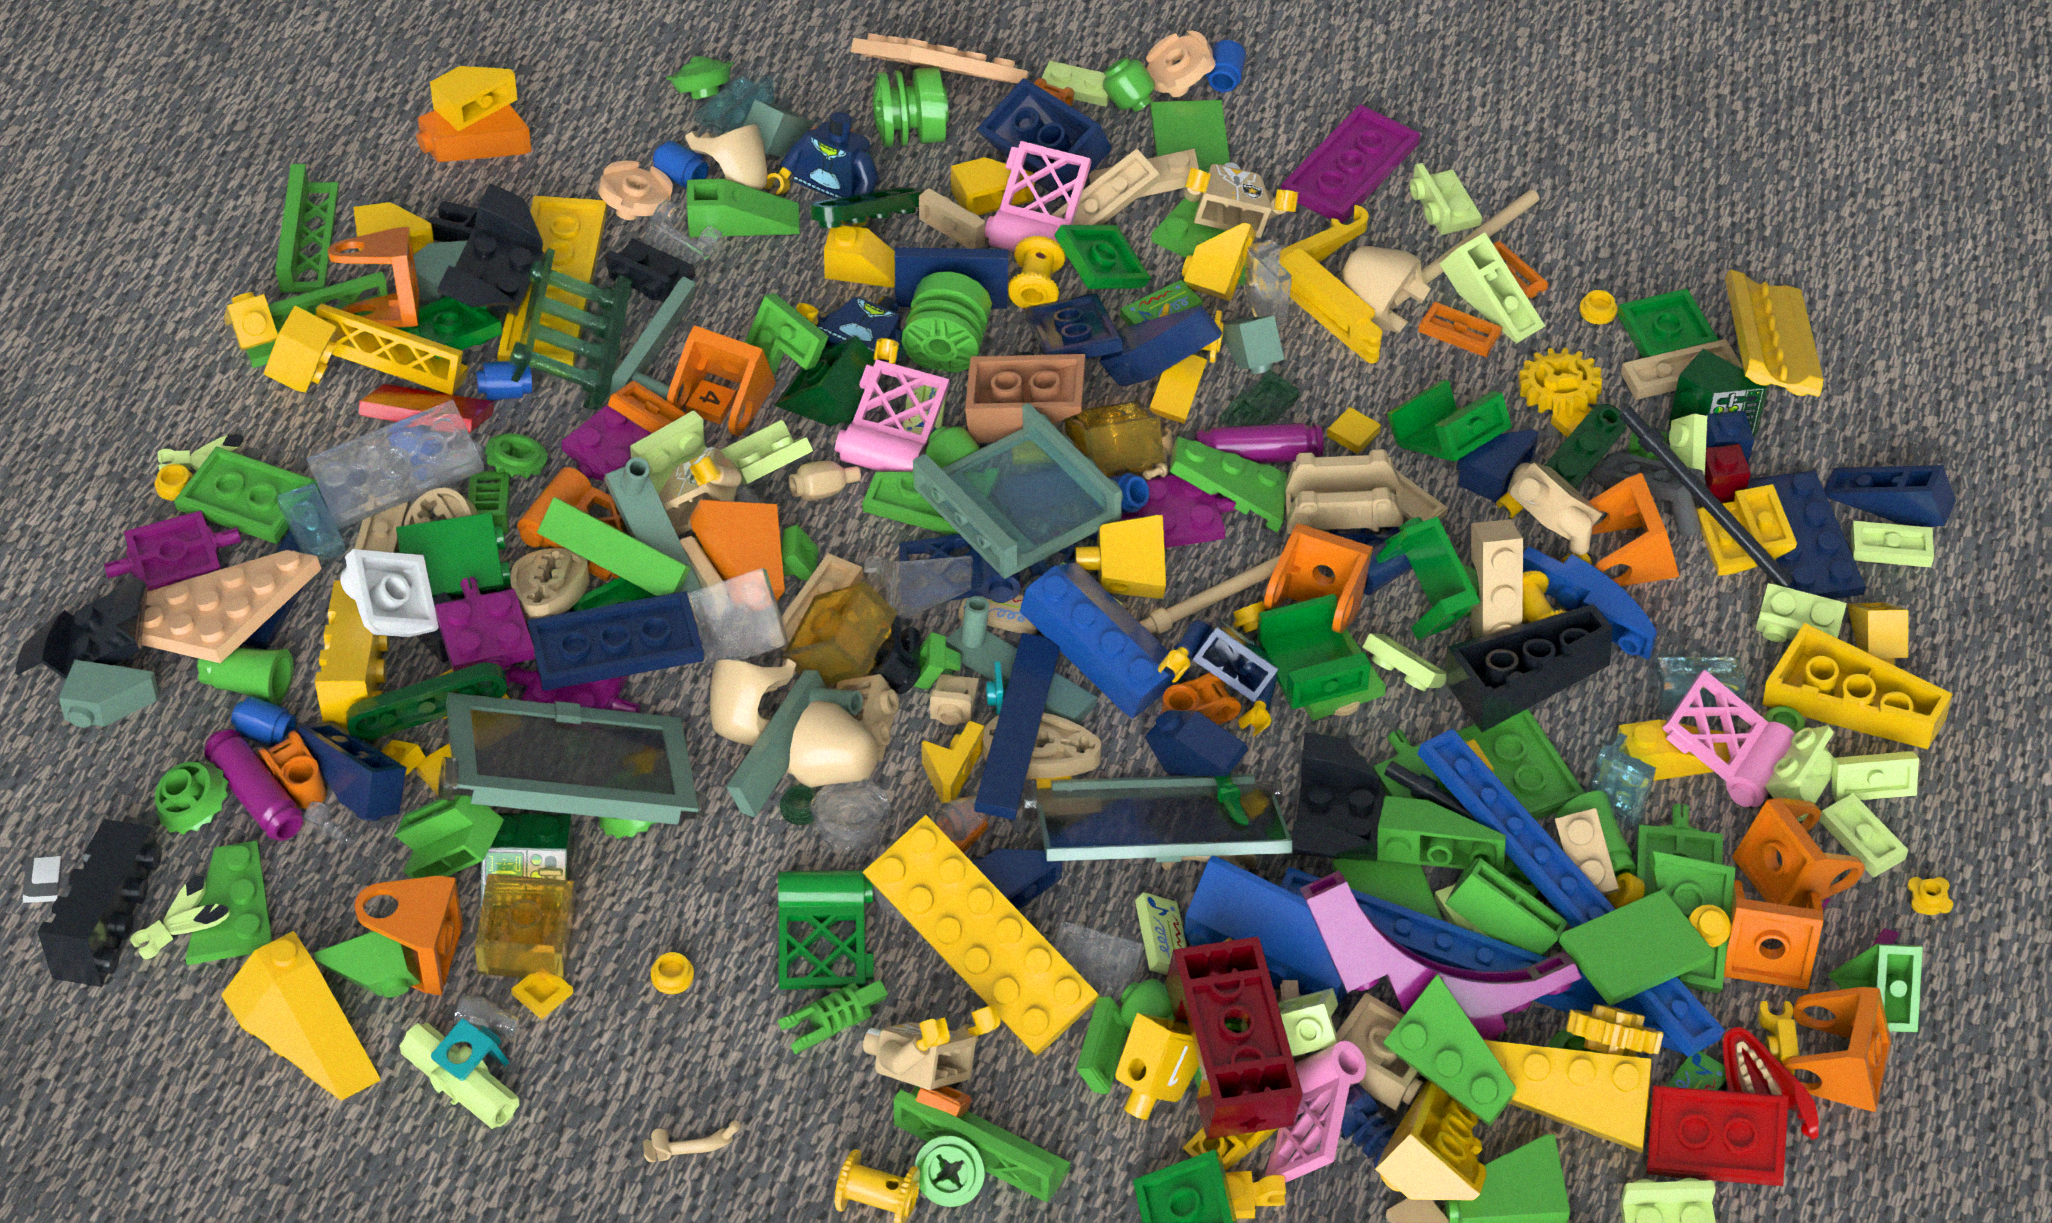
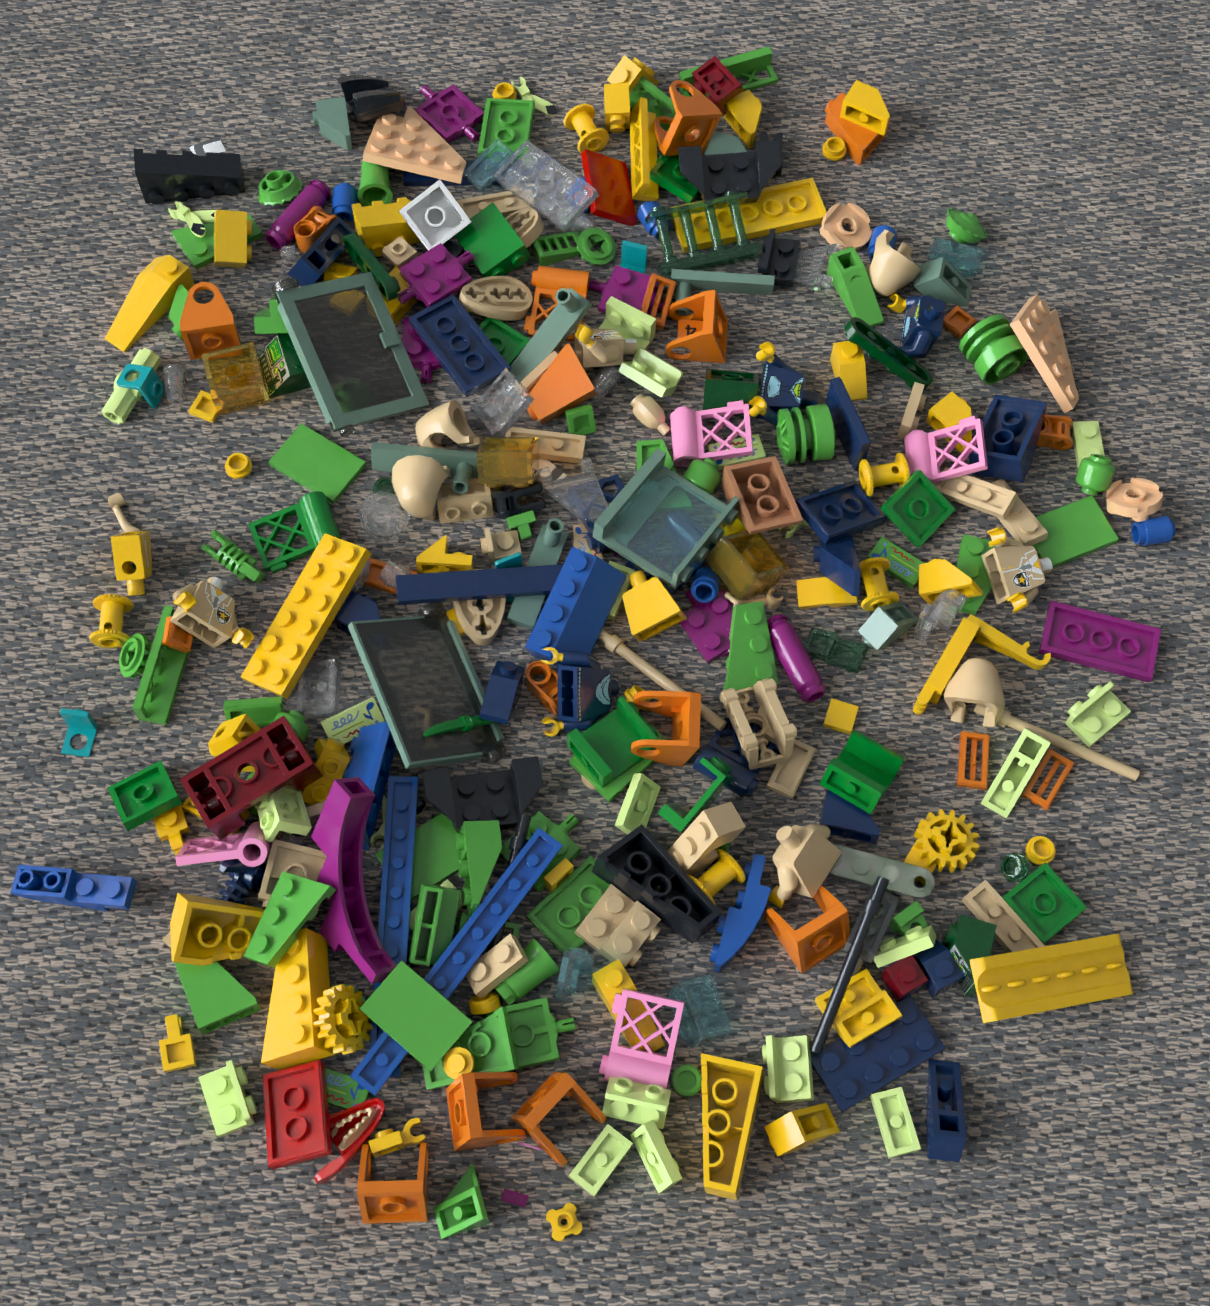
camera: 70 degrees right, 15 degrees up
(264, 869) = (231, 239): none -> yellow brick
(302, 402) = (581, 119): none -> yellow hose
(318, 228) = (716, 83): none -> dark red bracket
(411, 666) = (399, 252): none -> tan bracket
(493, 163) = (834, 149): none -> yellow plate
(559, 417) = (634, 256): none -> teal bracket
(612, 549) = (529, 319): tile -> none
(713, 877) = (317, 463): none -> bright green tile
(784, 330) = (745, 345): bright green plate -> none
(786, 1126) = (135, 548): none -> yellow torso
(1565, 727) = (618, 927): none -> tan plate
(1613, 335) = (1015, 867): none -> clear green plate

